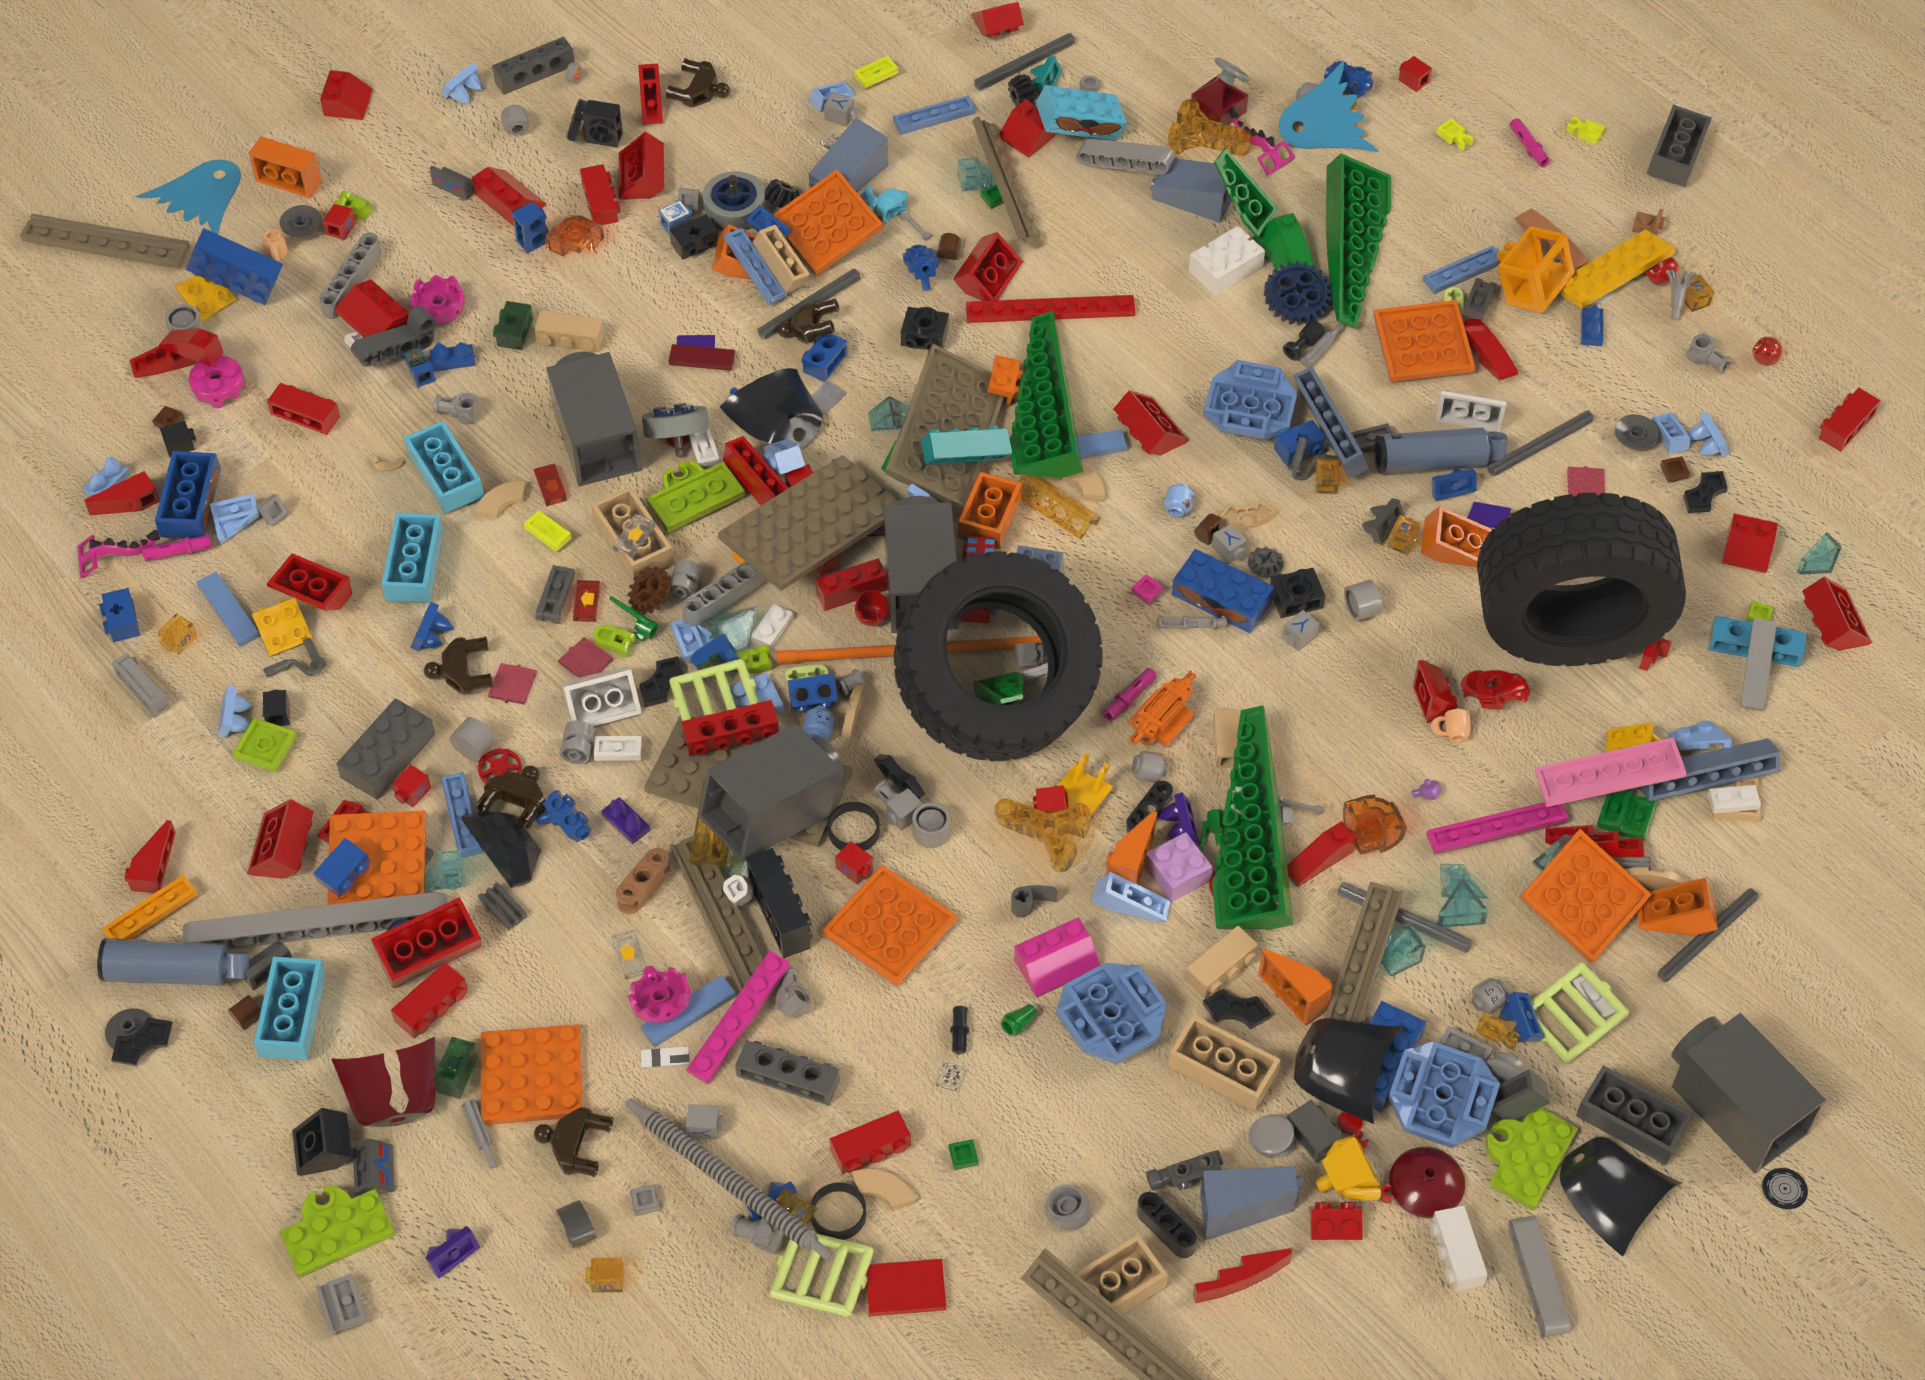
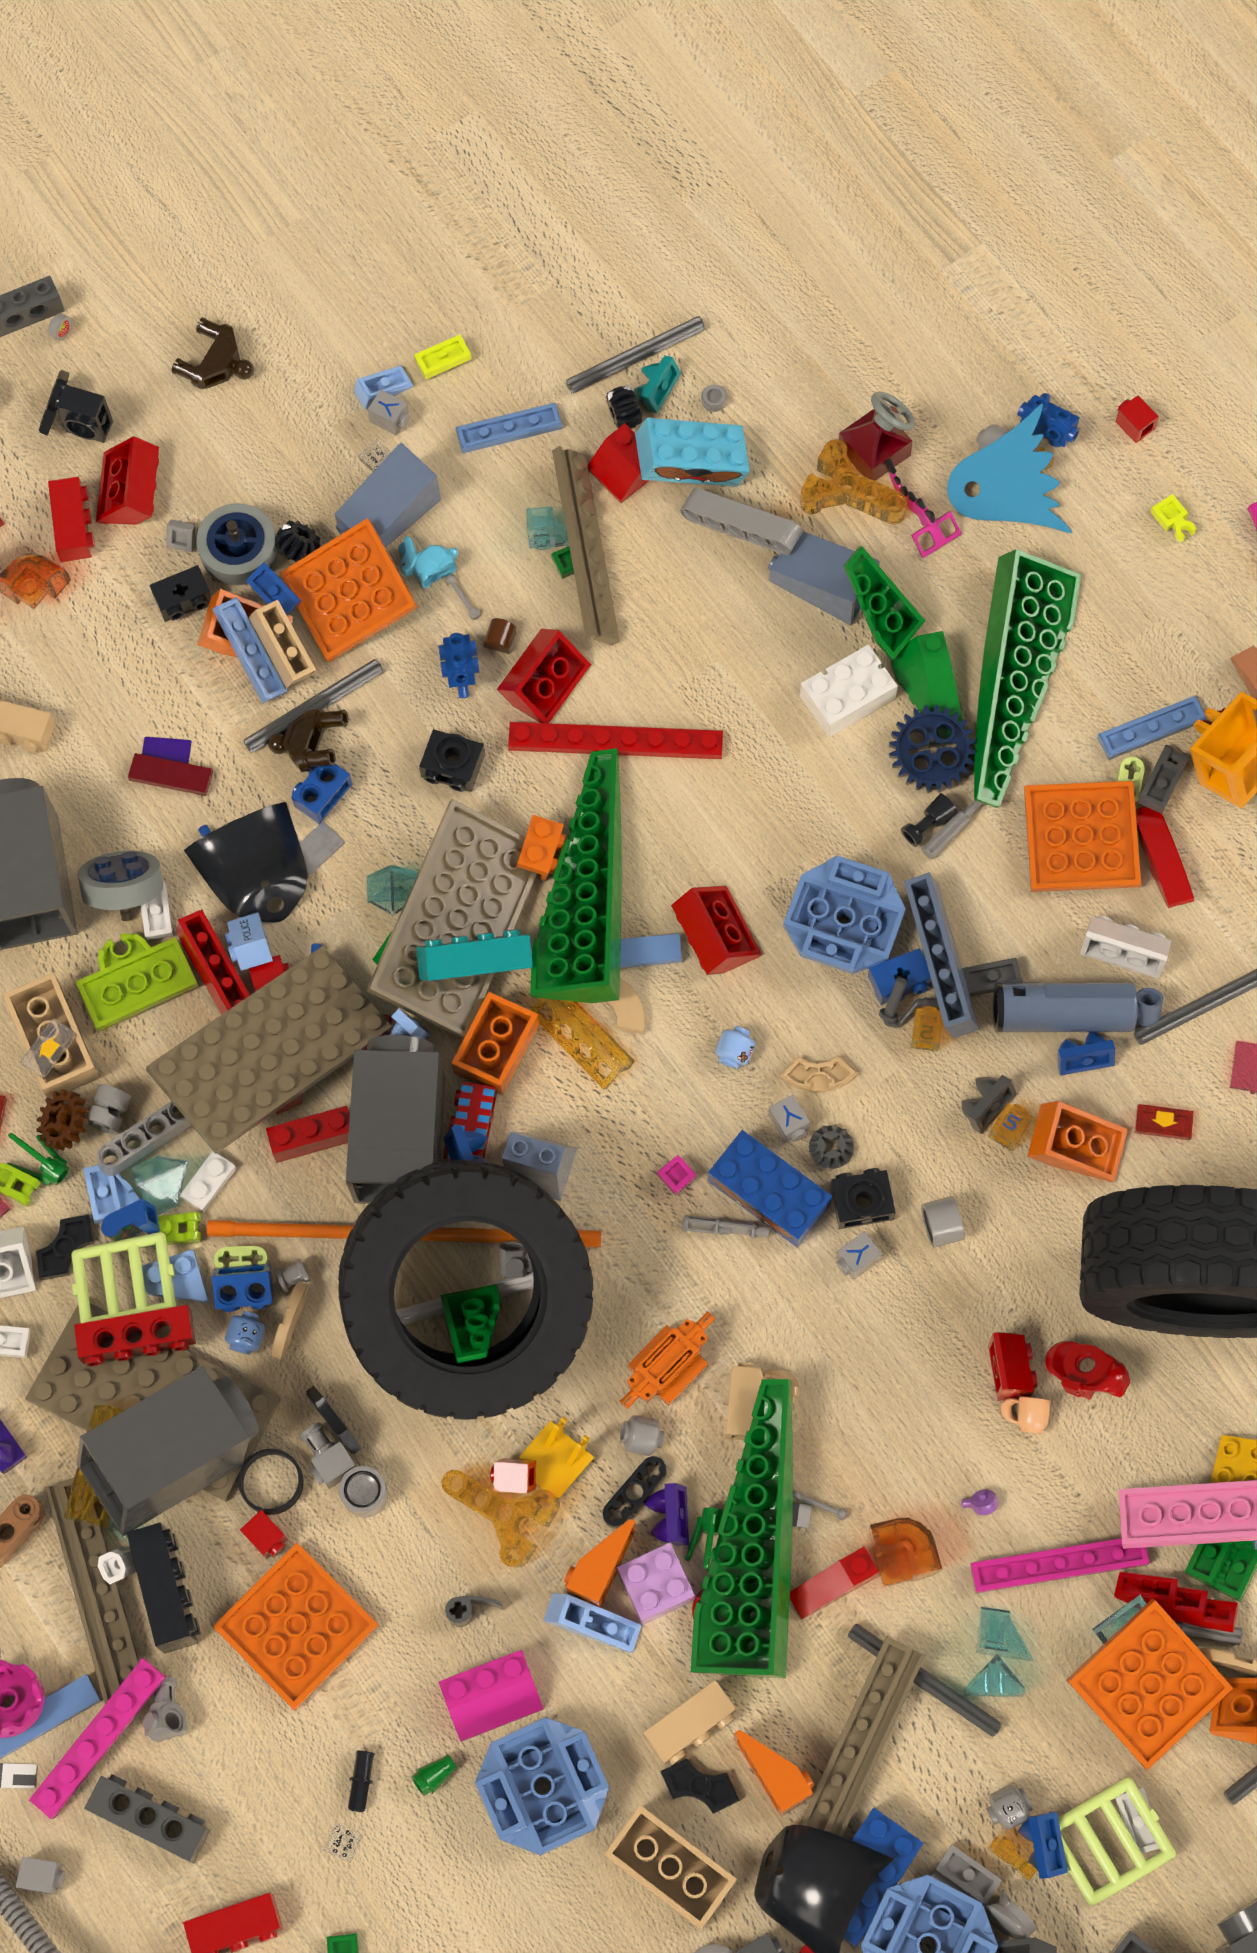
camera: 10 degrees right, 15 degrees up
(650, 93) = (152, 369): red slope -> none
(674, 215) = (161, 561): medium blue brick -> none
(871, 608) = (329, 1172): red hair -> none
(998, 19) = (610, 287): red slope -> none
(1123, 700) = (624, 1334): dark pink pin -> none
(1207, 528) = (766, 1093): reddish brown brick -> none
(1403, 950) = (912, 1728): clear light blue slope -> none
(1488, 514) = (1123, 1105): dark purple sticker -> none

